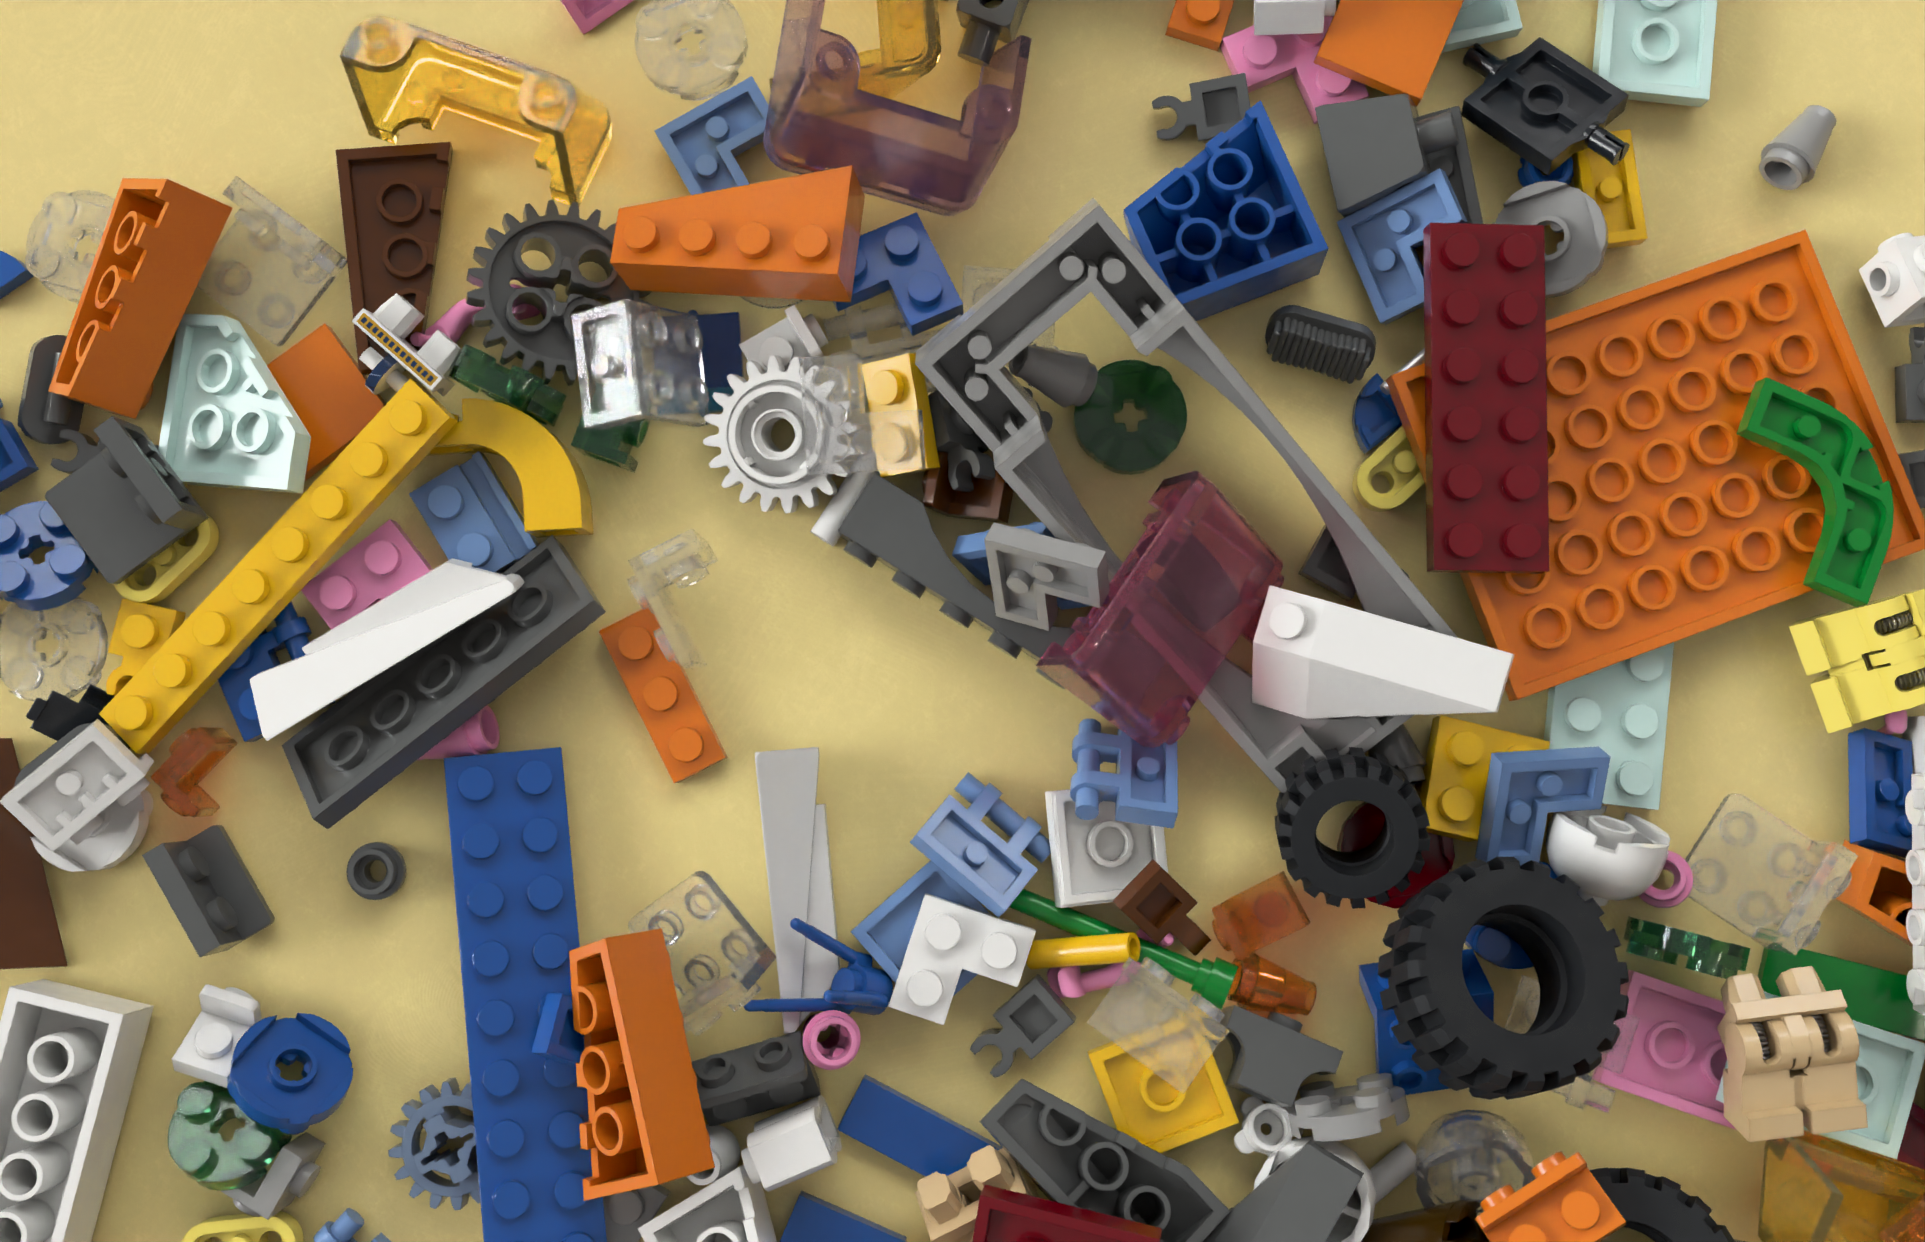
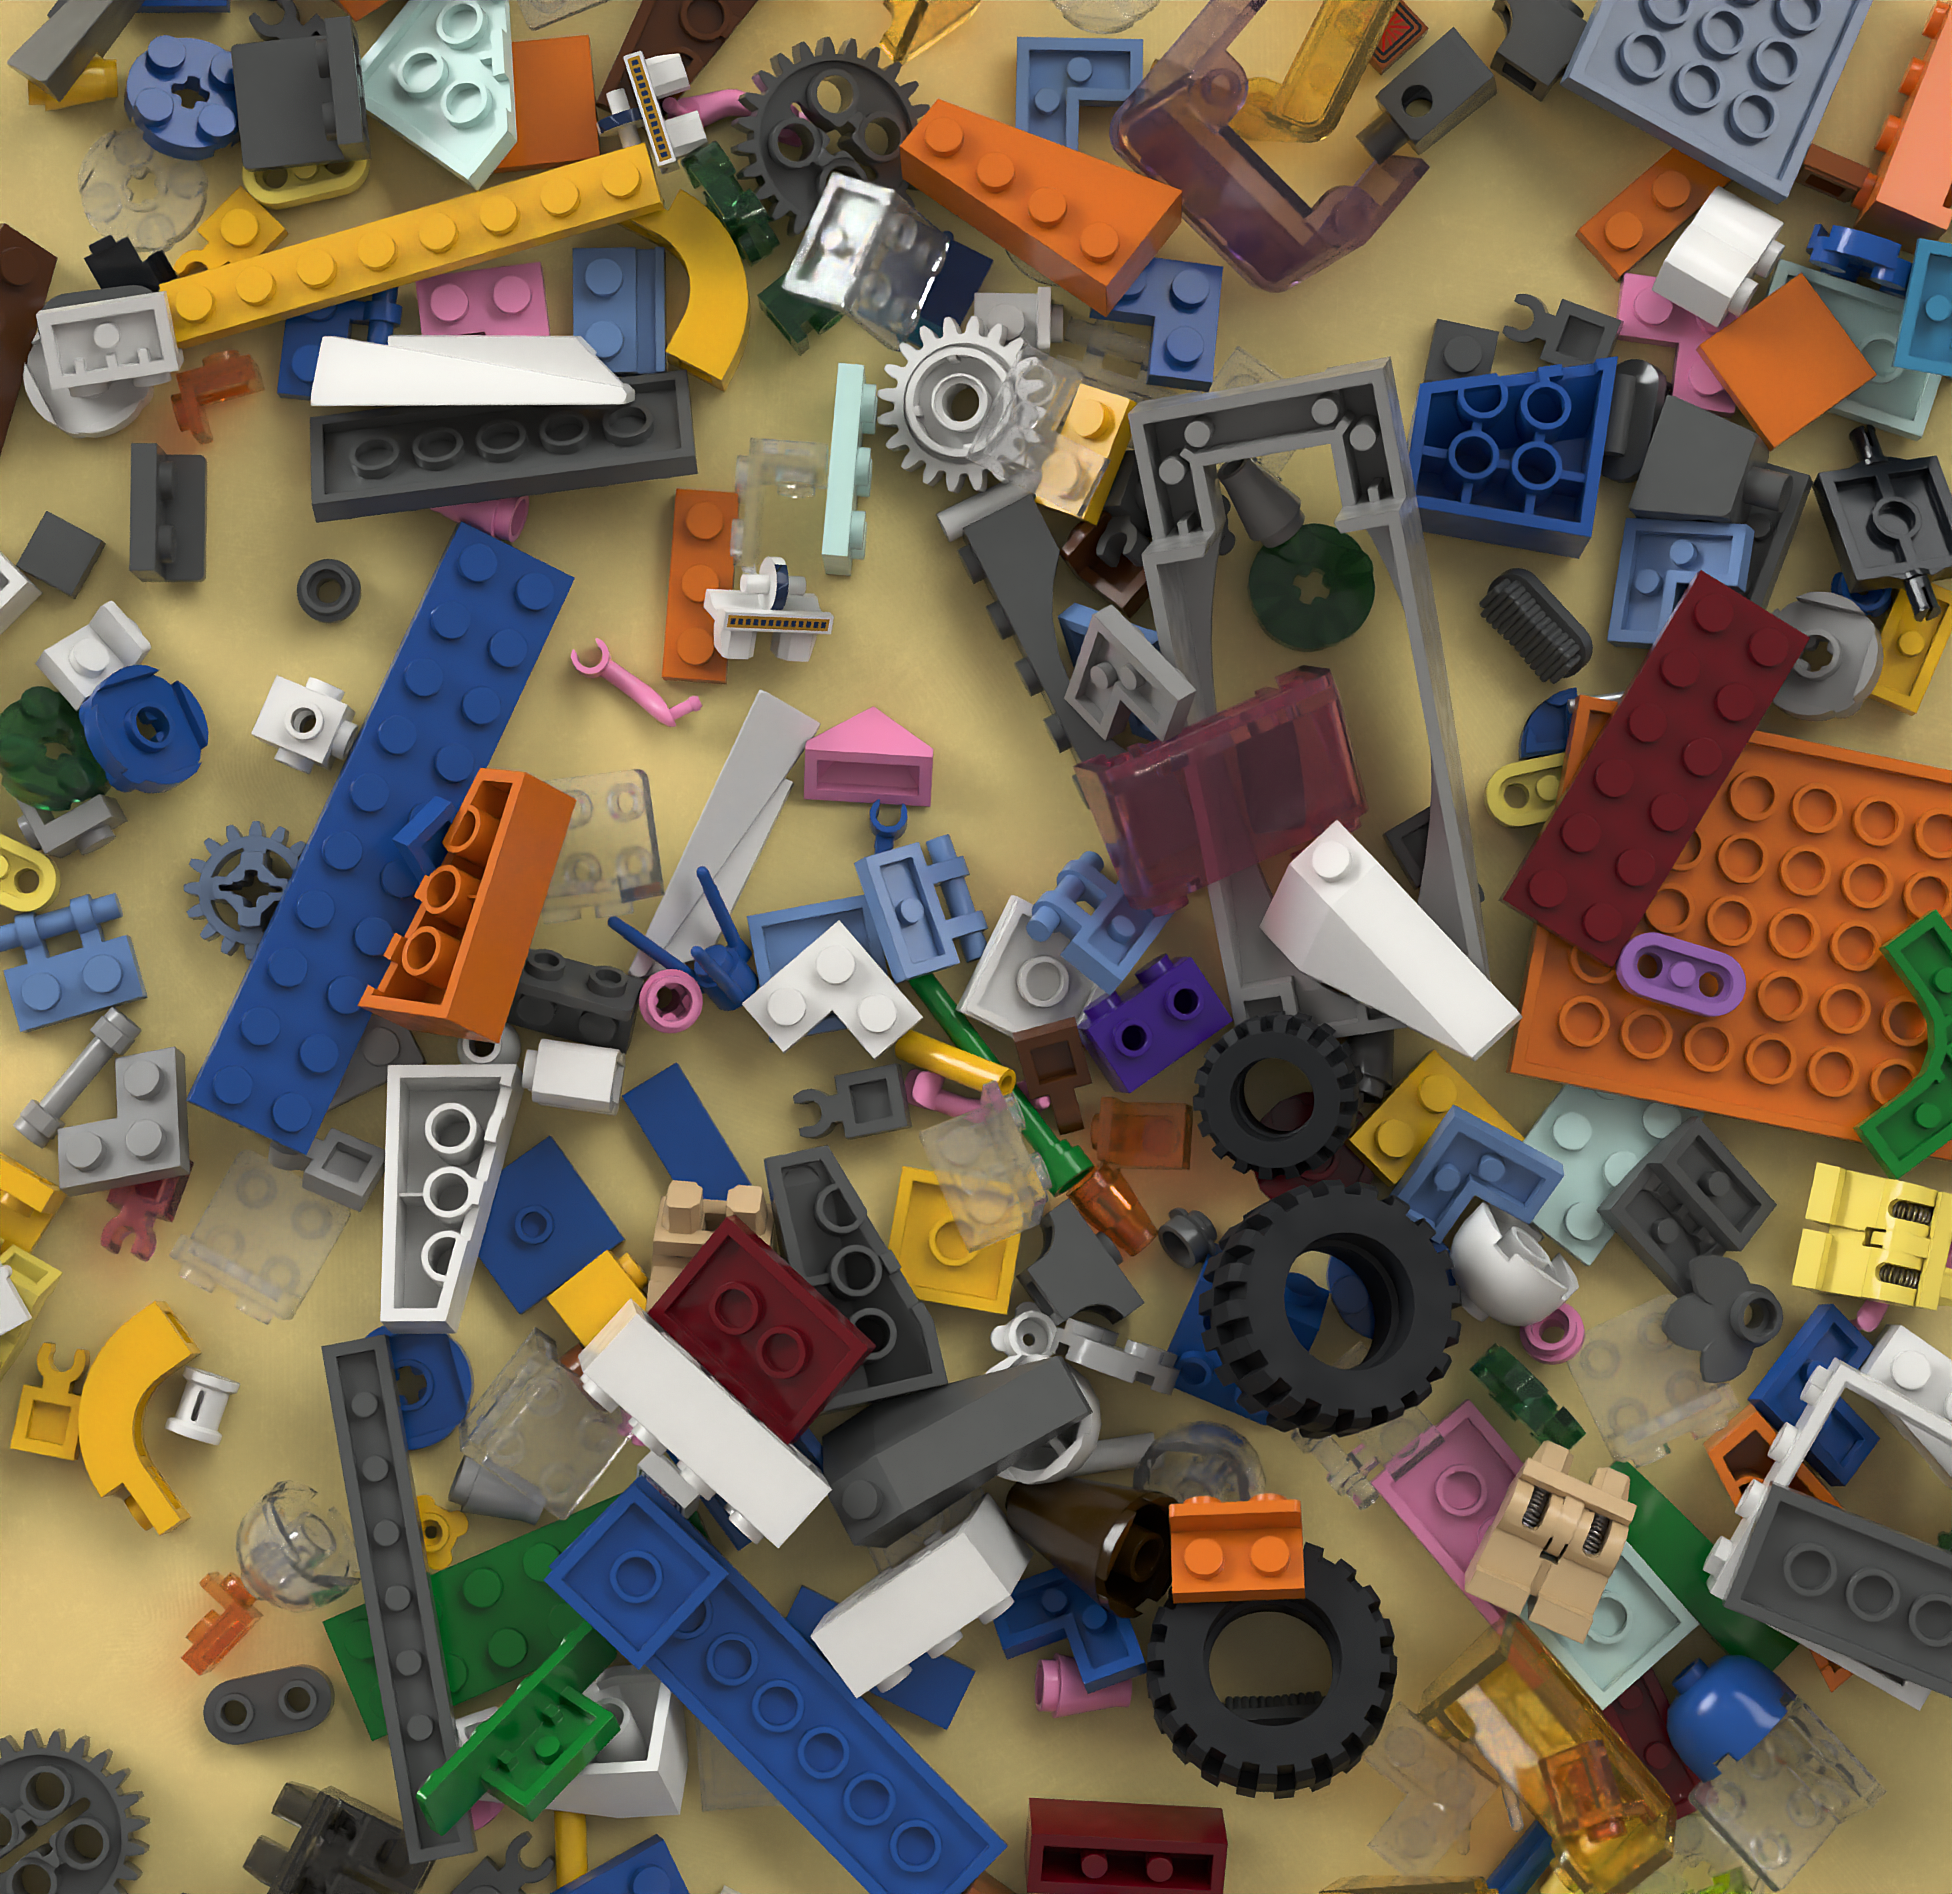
camera: 25 degrees right, 0 degrees up
(150, 967) = (60, 554): none -> dark grey tile
(415, 989) = (289, 709): none -> white brick
(658, 803) = (635, 688): none -> bright pink piece
(721, 537) = (848, 470): none -> light aqua plate
(722, 680) = (767, 604): none -> white hips
(872, 753) = (868, 761): none -> bright pink slope
(919, 803) = (886, 834): none -> blue hand
(1133, 172) = (1459, 351): none -> dark grey plate
(1215, 826) = (1151, 1022): none -> dark purple brick
(1300, 143) = (1633, 416): none -> dark grey piece
(1340, 974) = (1188, 1237): none -> dark grey plate
(1601, 546) = (1678, 975): none -> medium lavender plate
(1706, 720) = (1686, 1203): none -> dark grey slope
(1787, 789) = (1714, 1317): none -> dark grey plate

